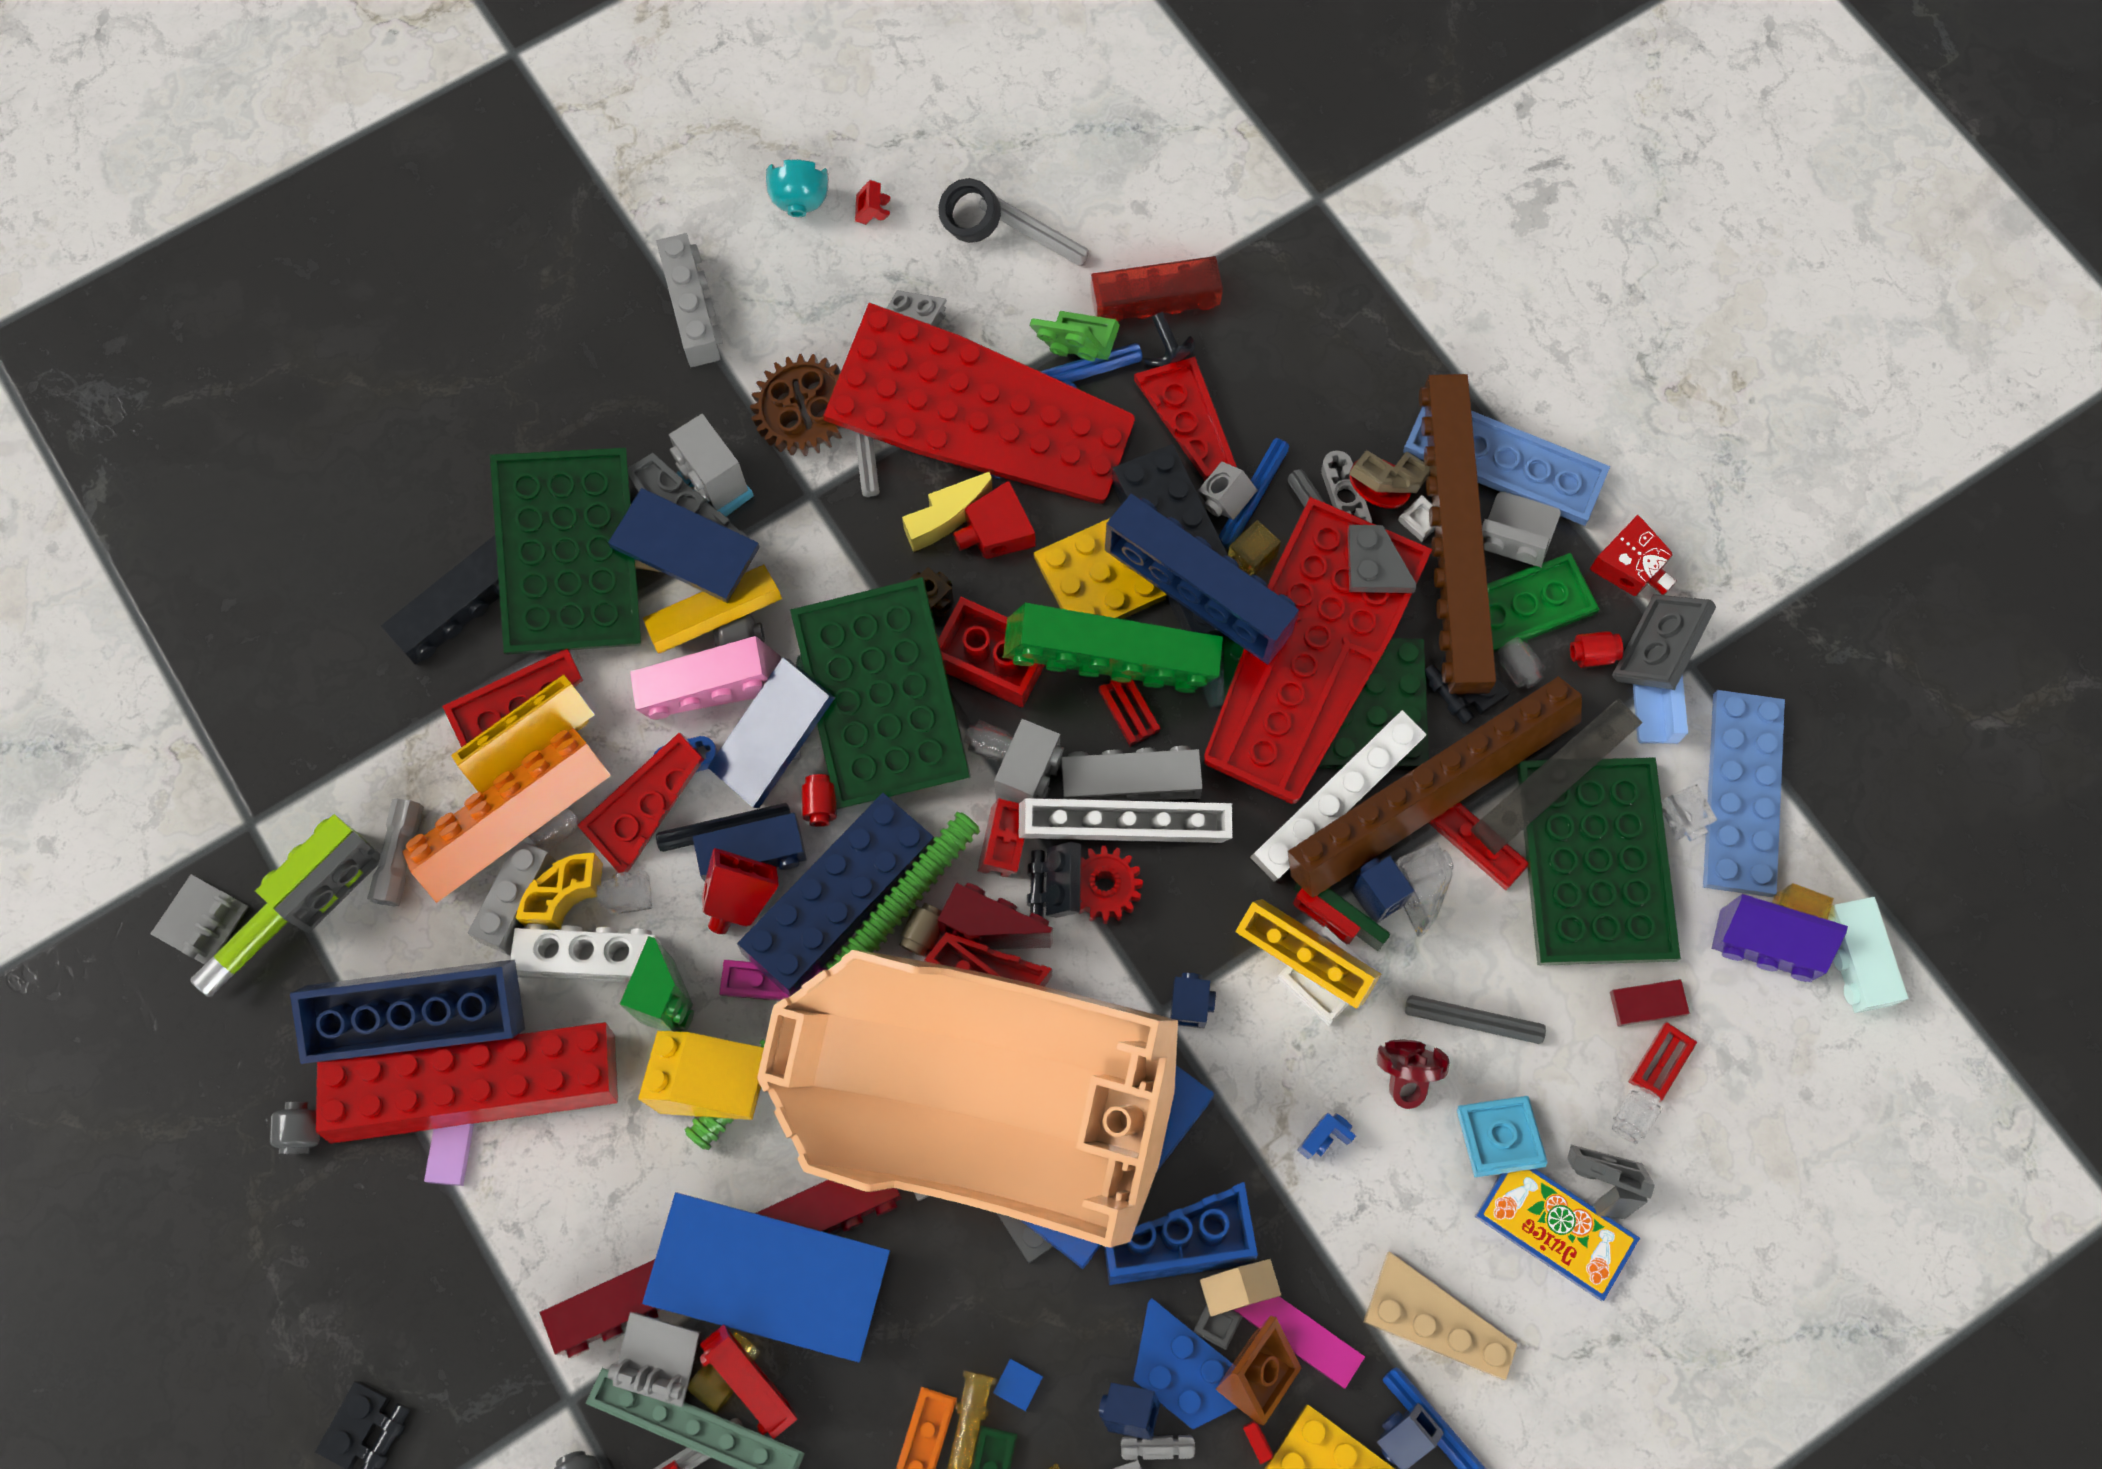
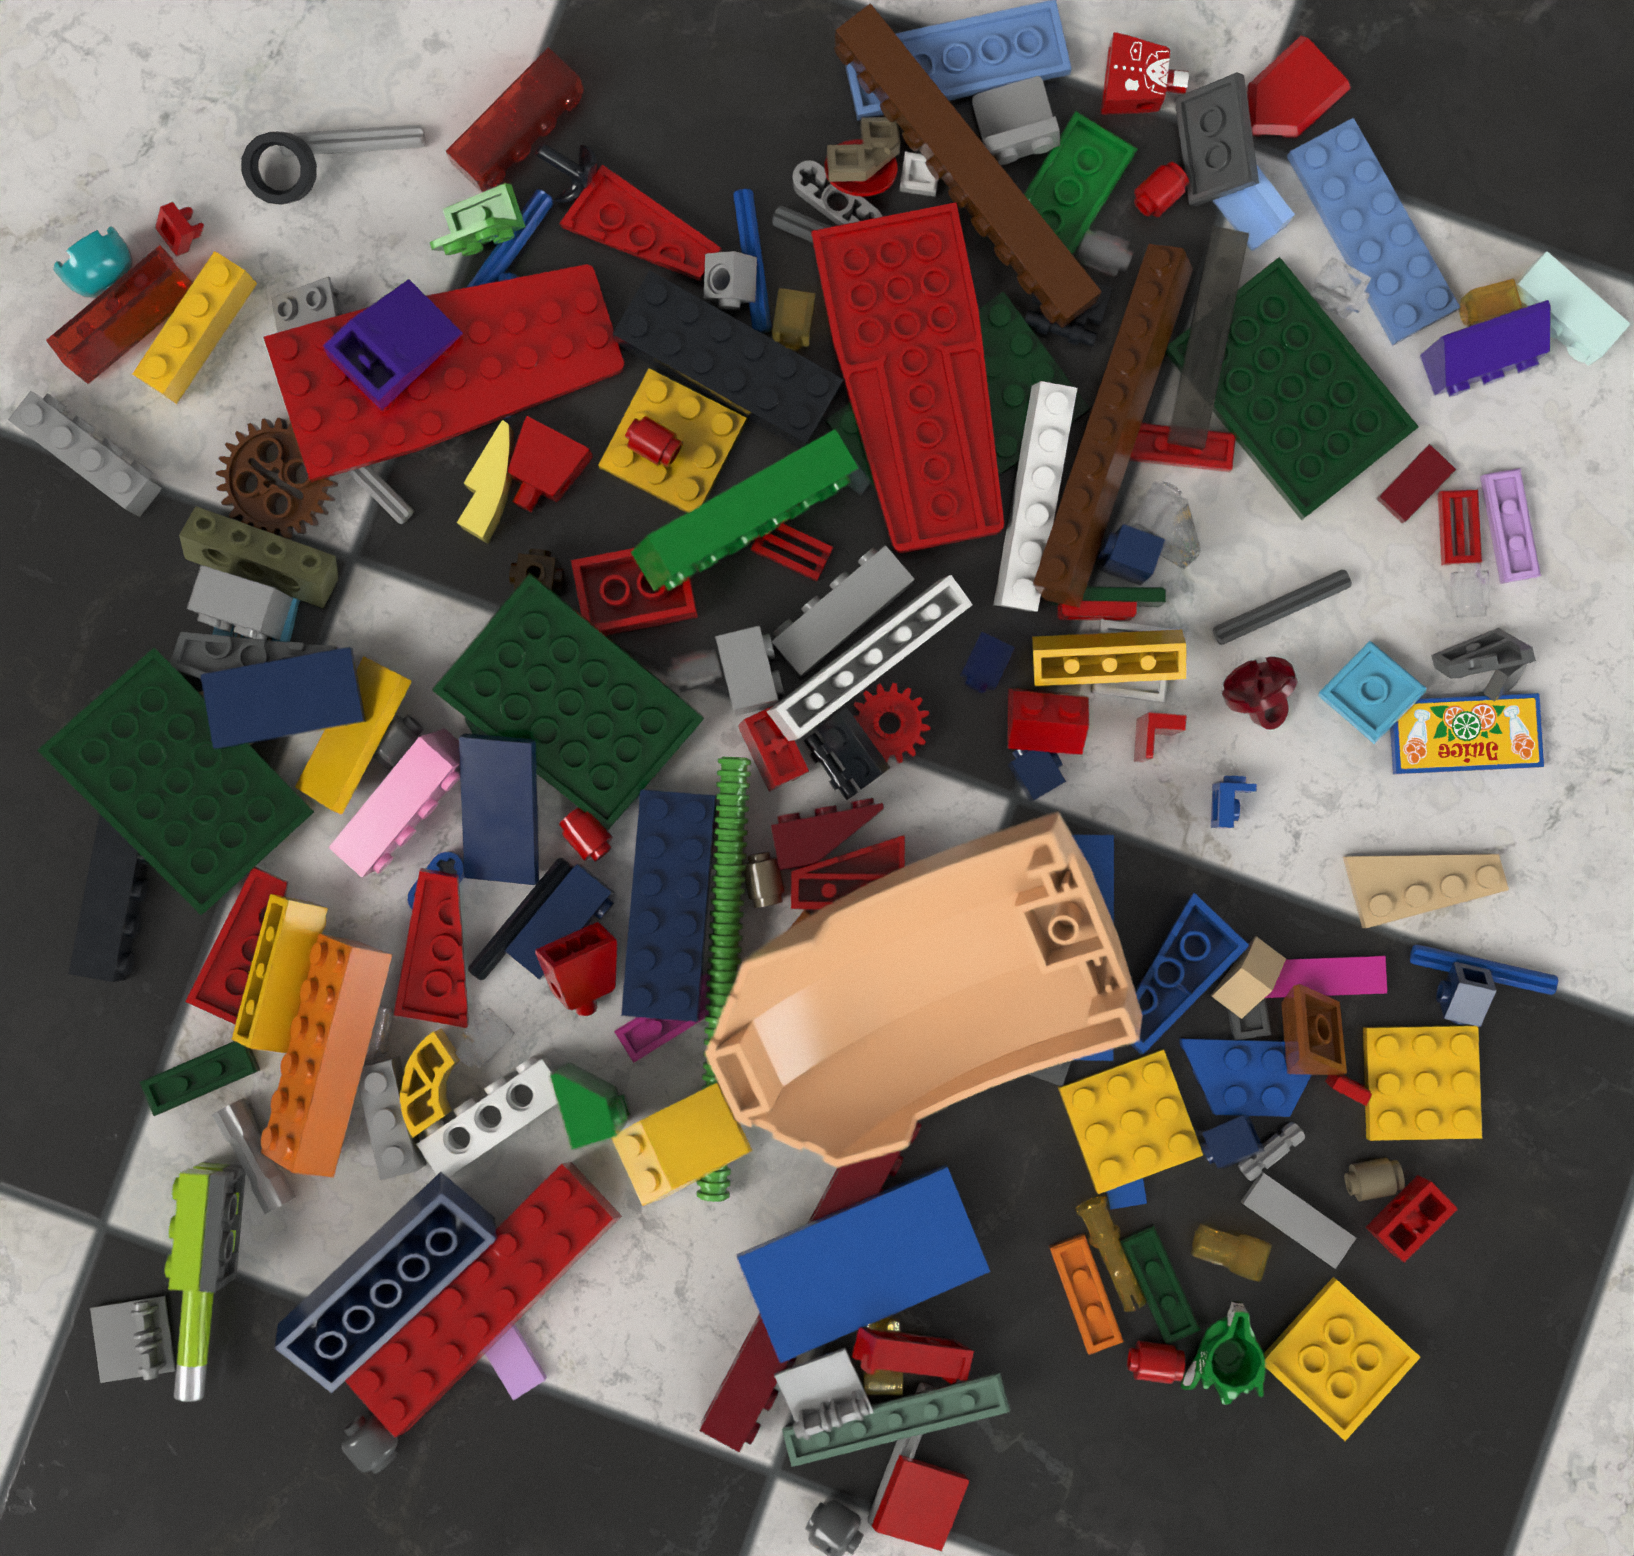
camera: 40 degrees left, 15 degrees up
(407, 769) = (198, 1077): none -> dark green tile
(762, 463) = (259, 556): none -> olive brick
(788, 230) = (121, 315): none -> clear red brick
(829, 271) = (195, 327): none -> yellow brick
(952, 363) = (391, 343): none -> dark purple slope
(1061, 1334) = (1130, 1121): none -> yellow plate
(1085, 559) = (653, 441): none -> red brick
(1200, 578) = (777, 389): dark blue brick -> none
(1212, 893) = (986, 663): none -> clear blue brick
(1225, 965) = (1047, 721): none -> red slope
(1310, 1032) = (1153, 724): none -> red panel
(1376, 562) = (916, 253): dark grey wing -> none
(1705, 1090) = (1510, 526): none -> lavender tile
(1750, 651) = (1294, 91): none -> red tile

